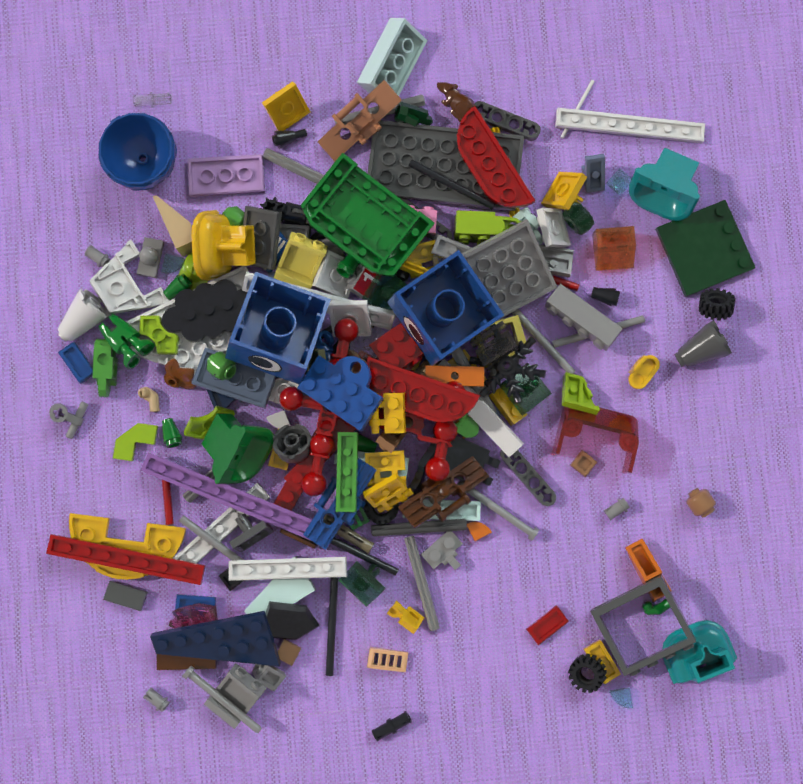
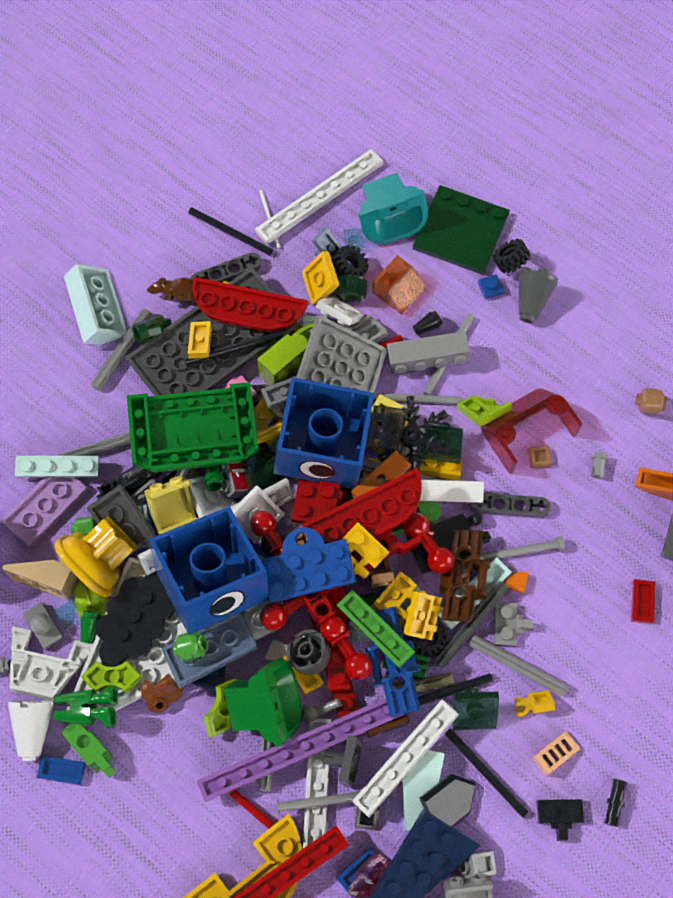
camera: 40 degrees left, 15 degrees down
(76, 420) = (106, 818): light grey piece -> none
(126, 443) = (172, 776): lime tile -> none
(151, 396) = (153, 736): tan arm -> none
(171, 434) = (200, 749): green cone -> none
(256, 156) = (57, 466): none -> light aqua plate
(261, 481) = (312, 713): none -> light grey bar
(283, 138) = (65, 434): black cone -> none
(286, 107) = (45, 408): yellow tile -> none
(288, 652) = (474, 829): medium nougat tile -> none
(350, 697) = (560, 815): none -> black hinge
(364, 124) = (120, 367): nougat piece -> none
(421, 475) = (429, 575): black tile -> none
(433, 157) = (199, 339): none -> yellow plate
(539, 91) = (230, 231): none -> black piece
(606, 198) = (352, 255): none -> black tyre
(643, 371) = (510, 350): yellow bracket -> none
(680, 311) = (490, 286): none -> blue plate

